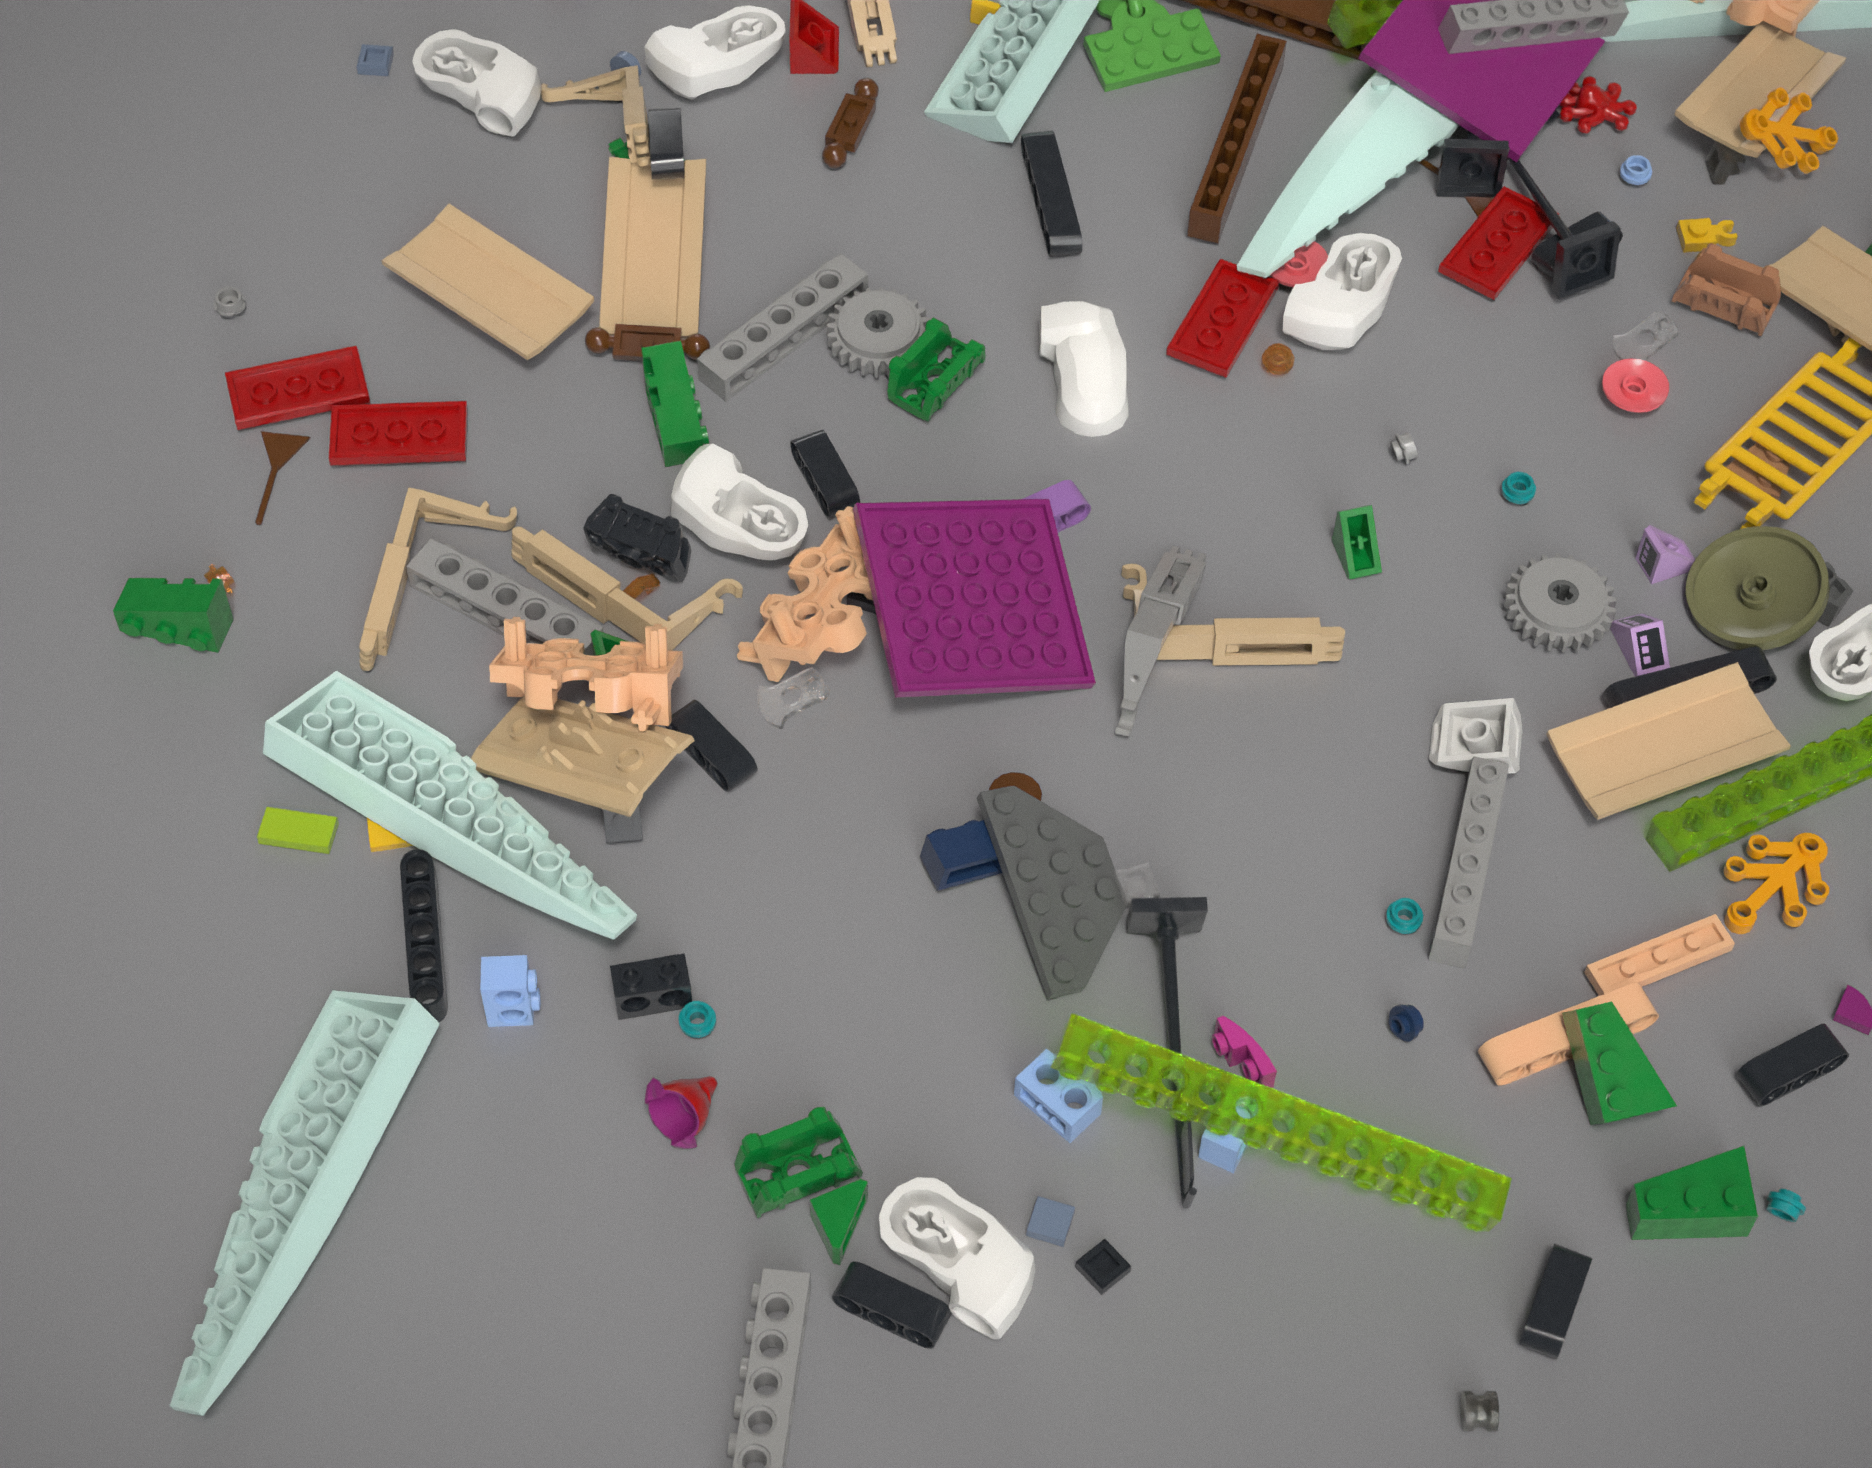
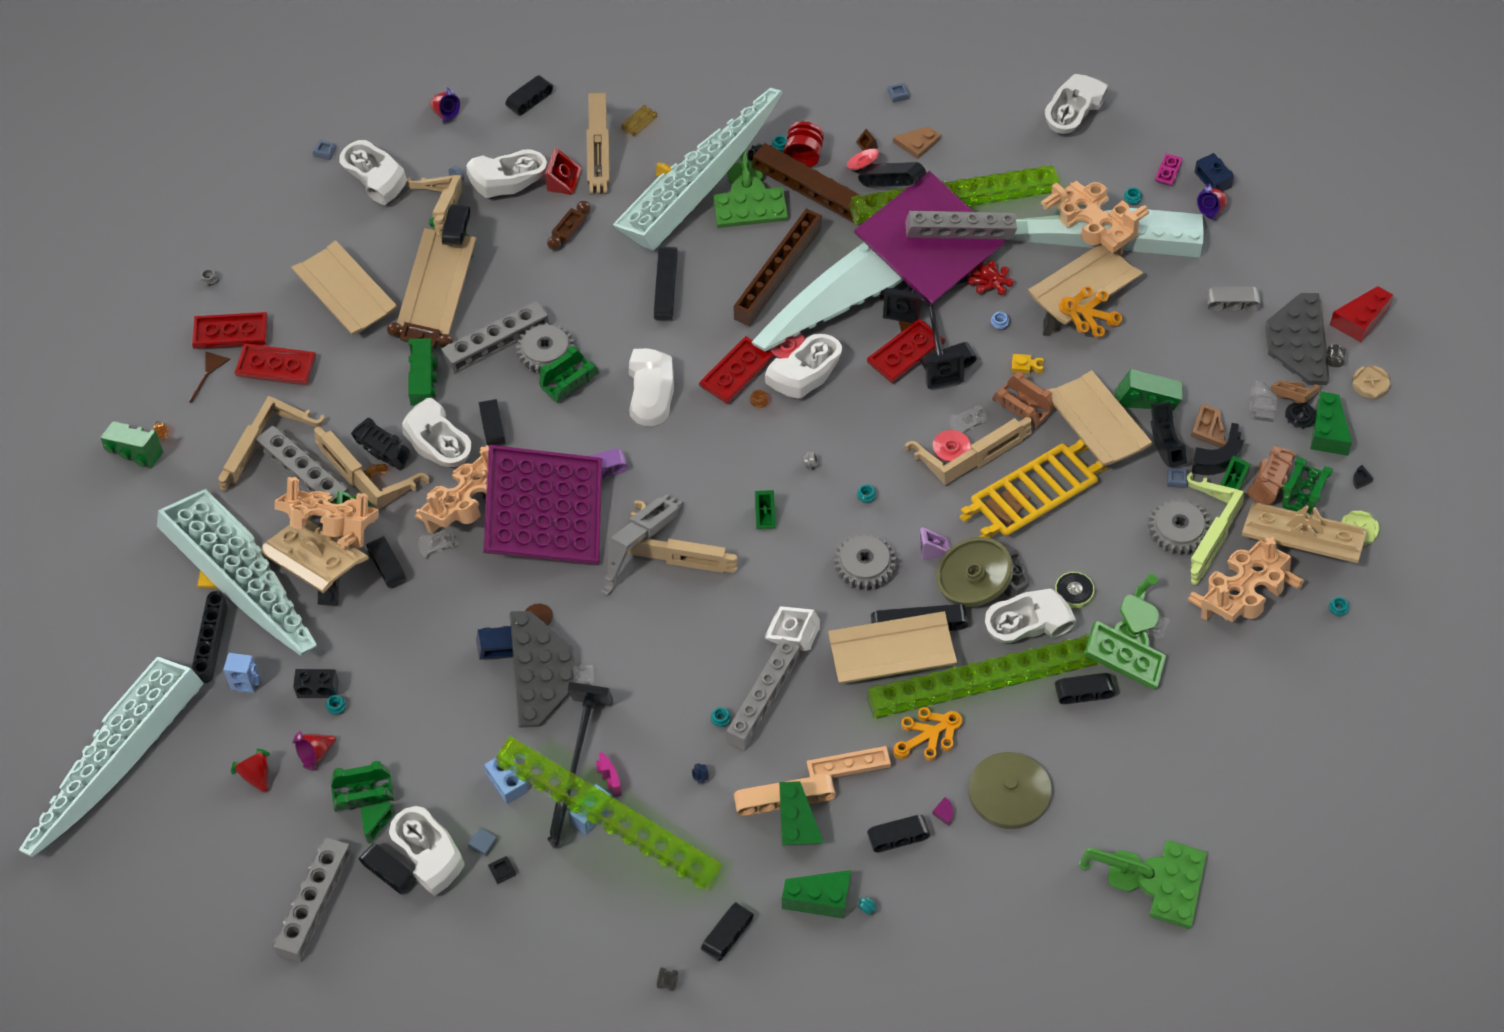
camera: 15 degrees right, 0 degrees up
(297, 830) = (163, 570): lime tile -> none
(584, 1167) = (254, 770): none -> red hat
(1642, 643) = (902, 591): lavender slope -> none
(1689, 392) = (979, 453): none -> tan hinge

